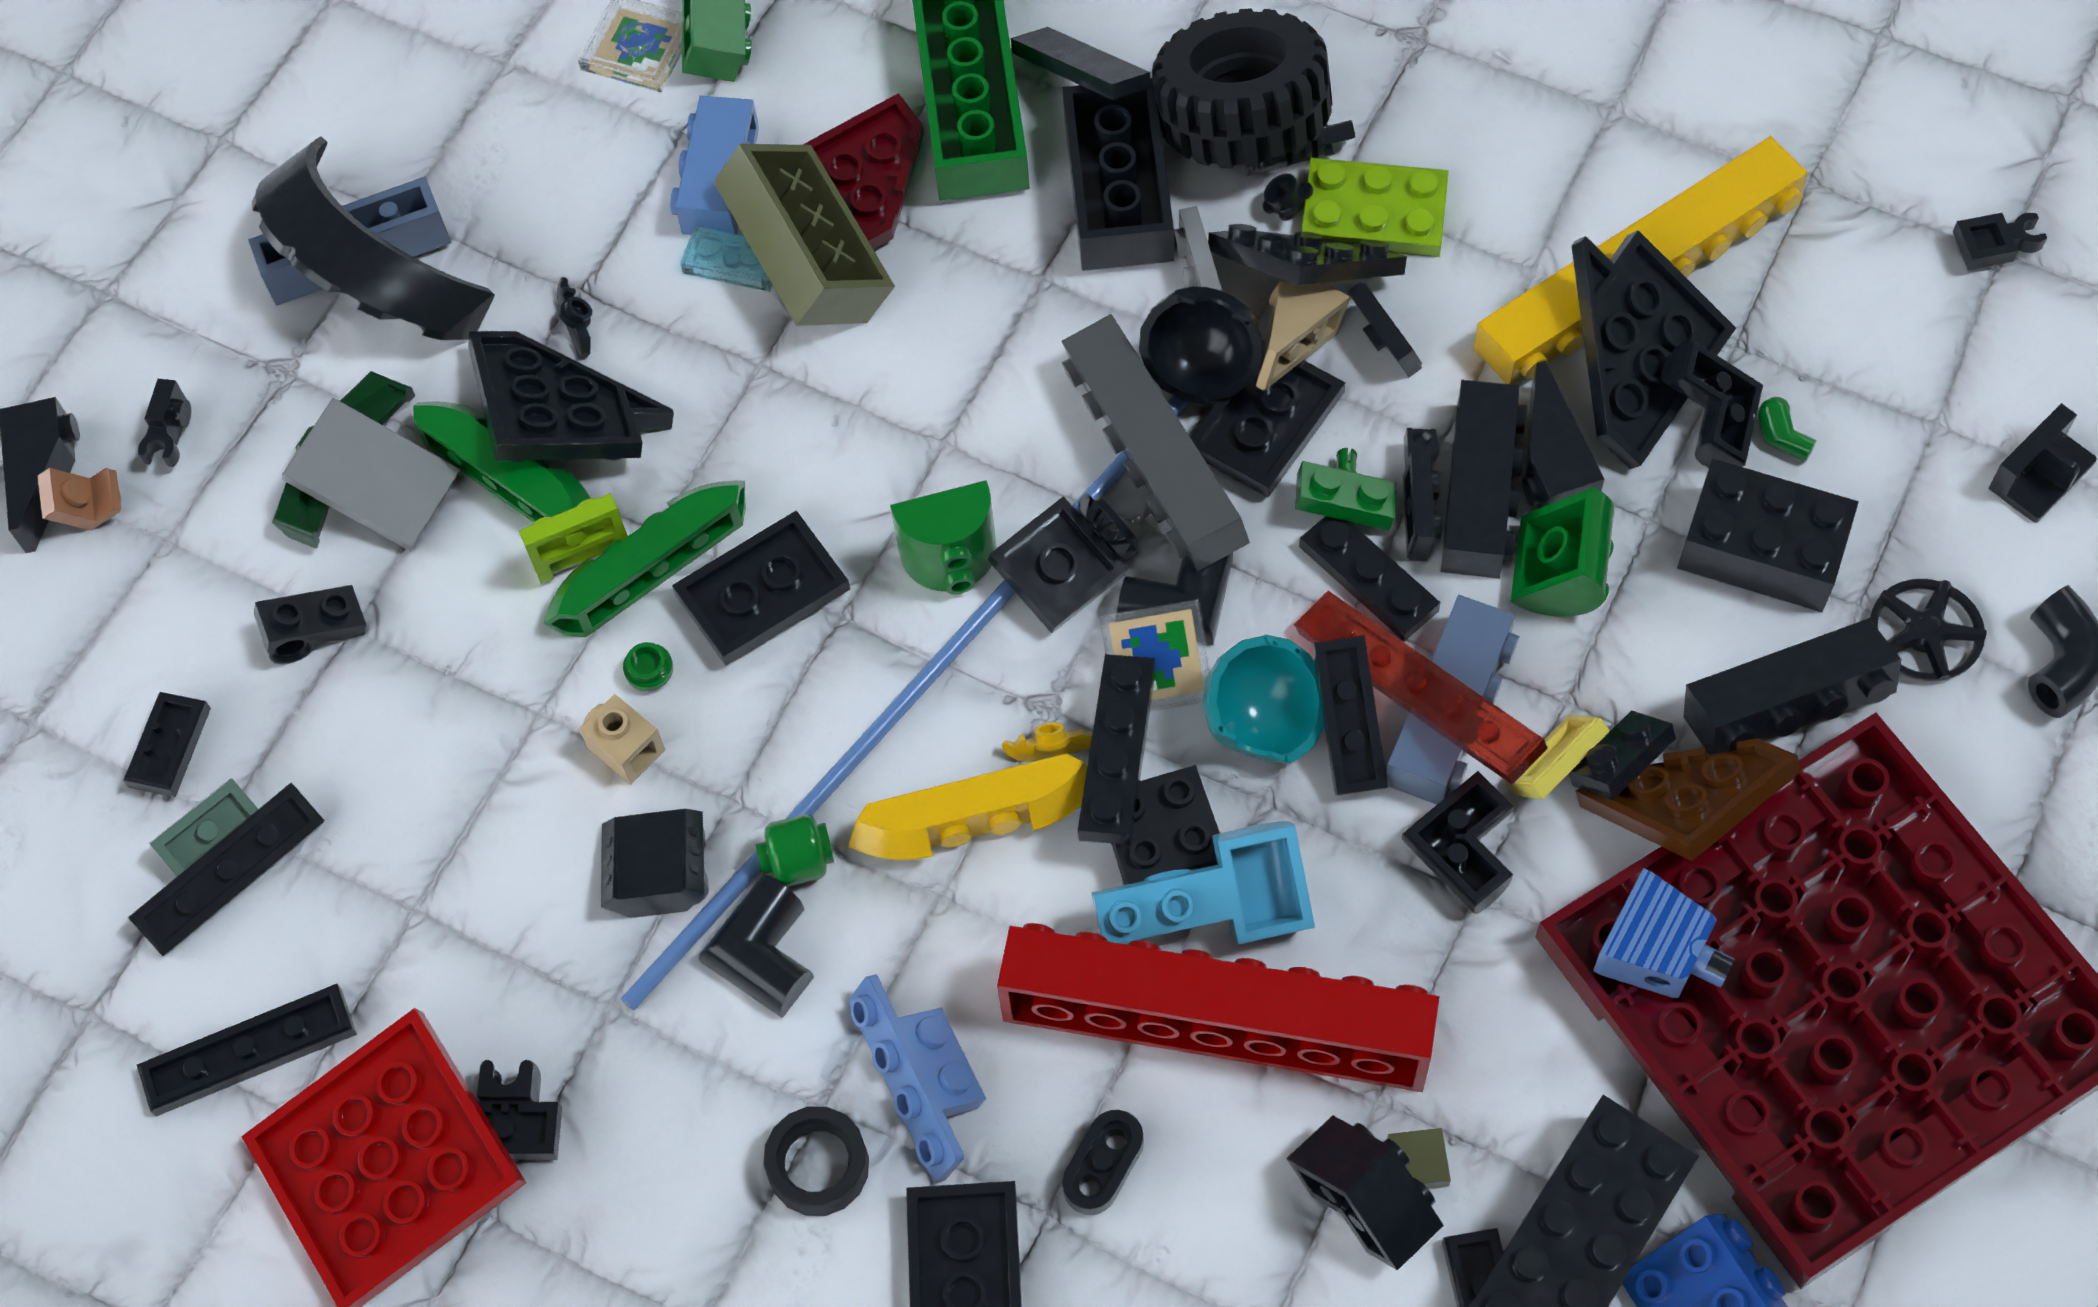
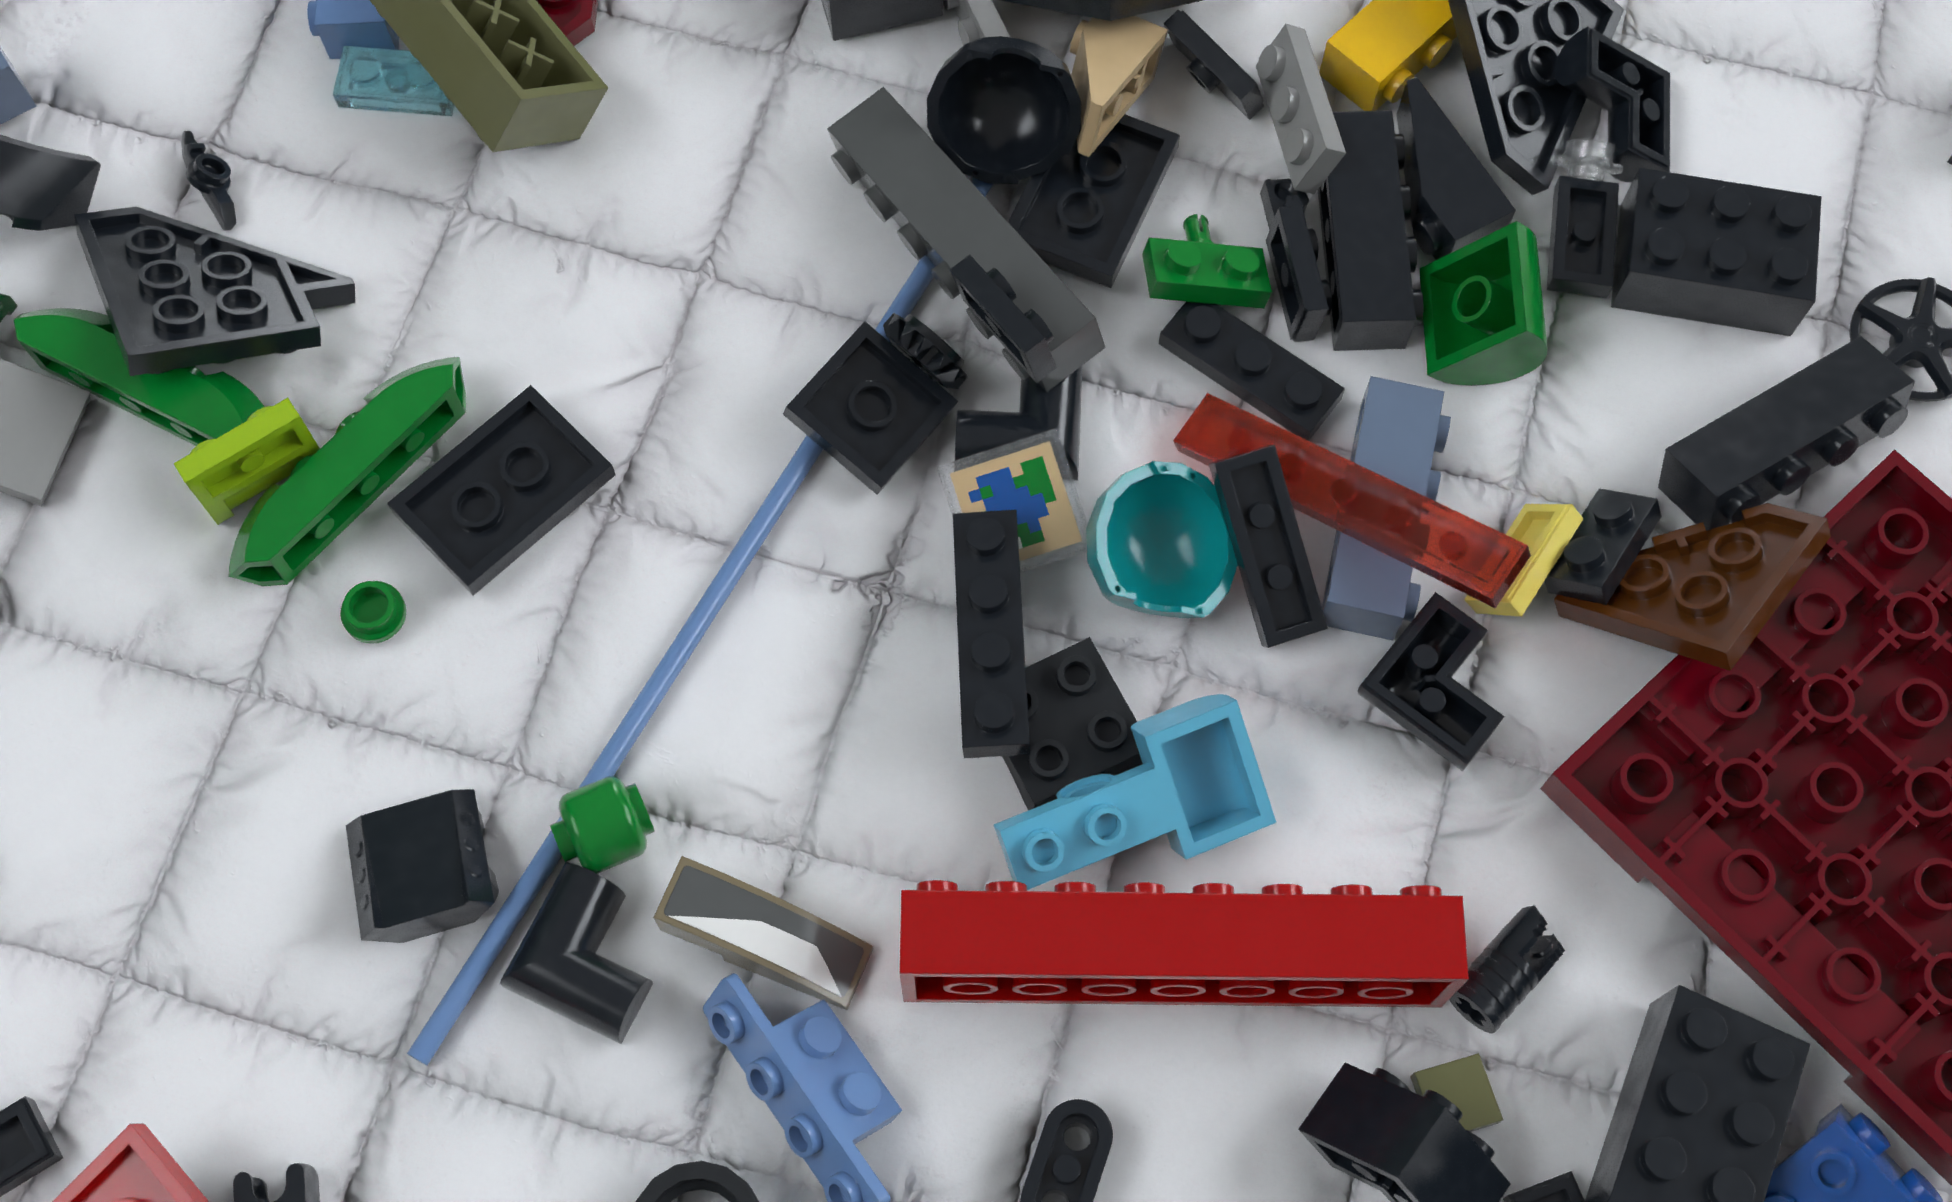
camera: 15 degrees left, 5 degrees up
(621, 738) = (353, 711): tan brick -> none
(902, 950) = (762, 933): none -> slope
(946, 537) = (727, 393): green brick -> none
(956, 811) = (794, 745): yellow brick -> none
(1048, 742) = (898, 632): yellow piece -> none
(1160, 491) = (992, 301): none -> black plate
(1445, 374) = (1300, 109): none -> light grey plate
(1470, 1072) = (1507, 970): none -> black hinge
(1661, 508) = (1583, 237): none -> black plate
(1661, 941) = (1711, 776): medium blue torso -> none
(1676, 447) = (1588, 159): none -> clear plate
(1779, 431) = (1698, 125): green arm -> none

